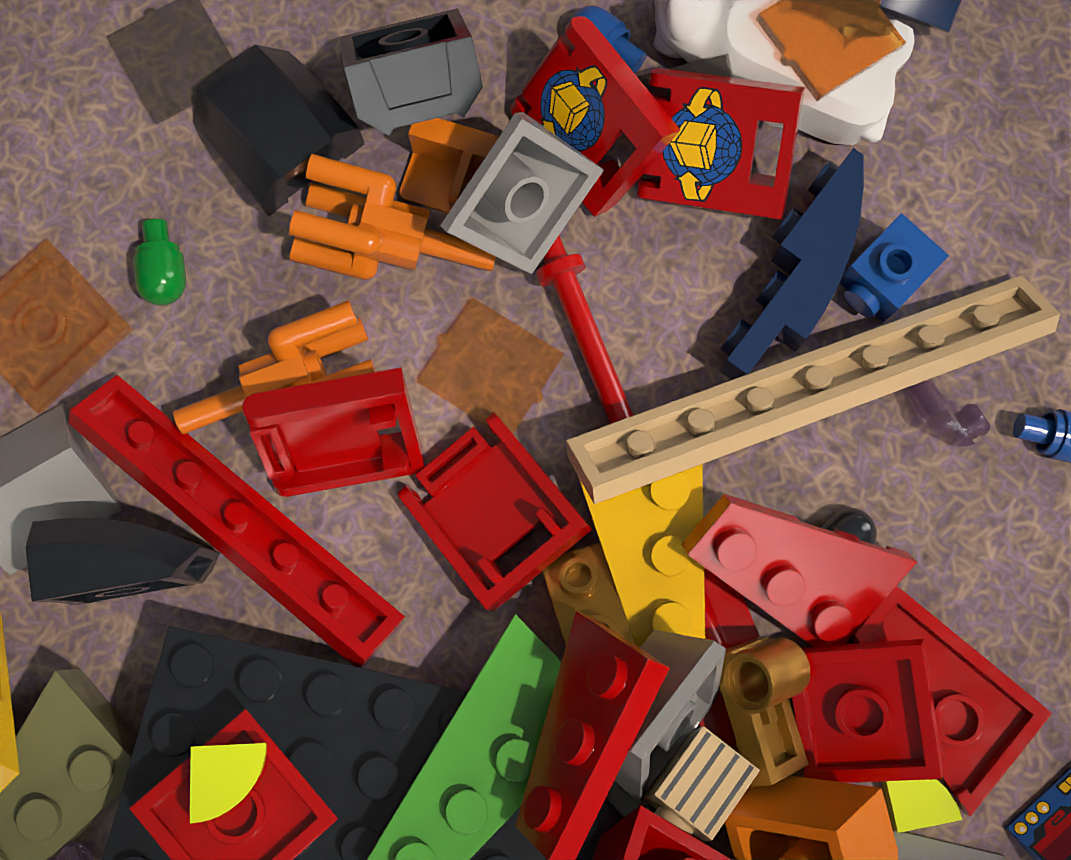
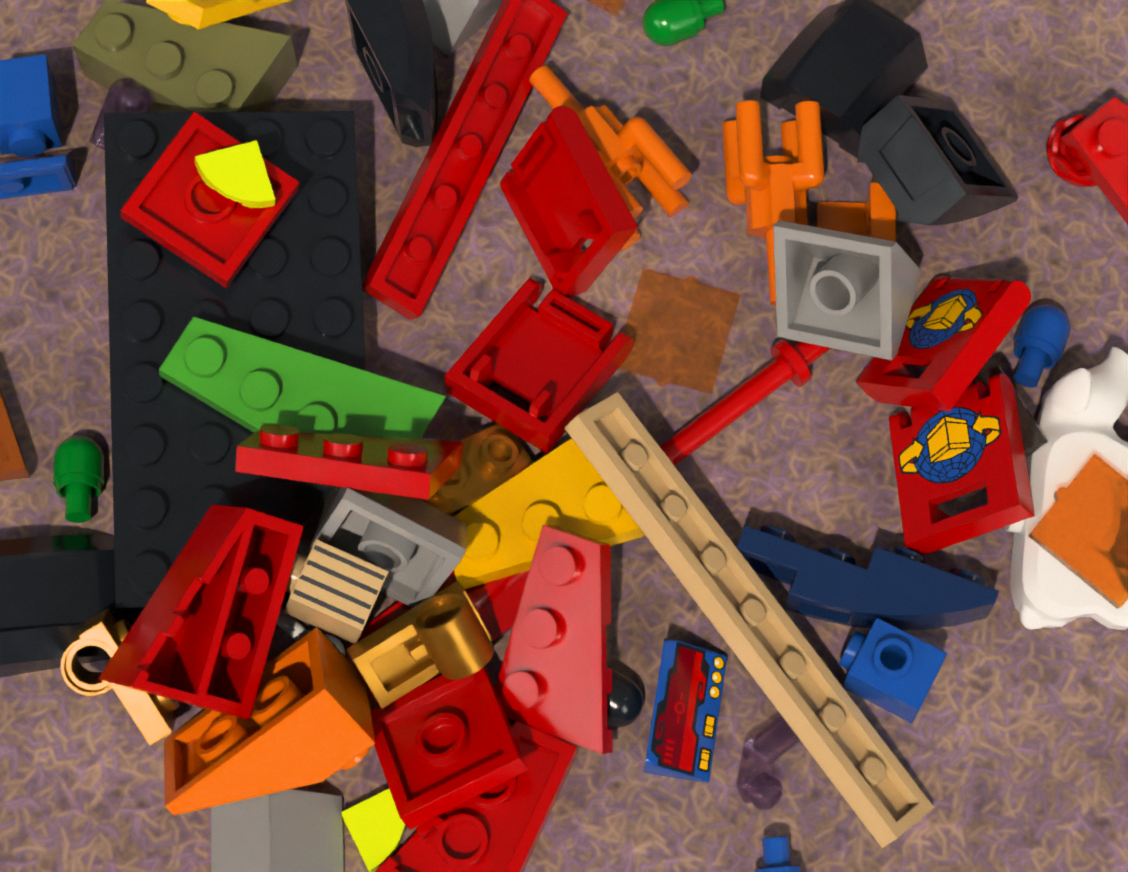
camera: 75 degrees right, 10 degrees down
(877, 473) = (685, 712): none -> slope

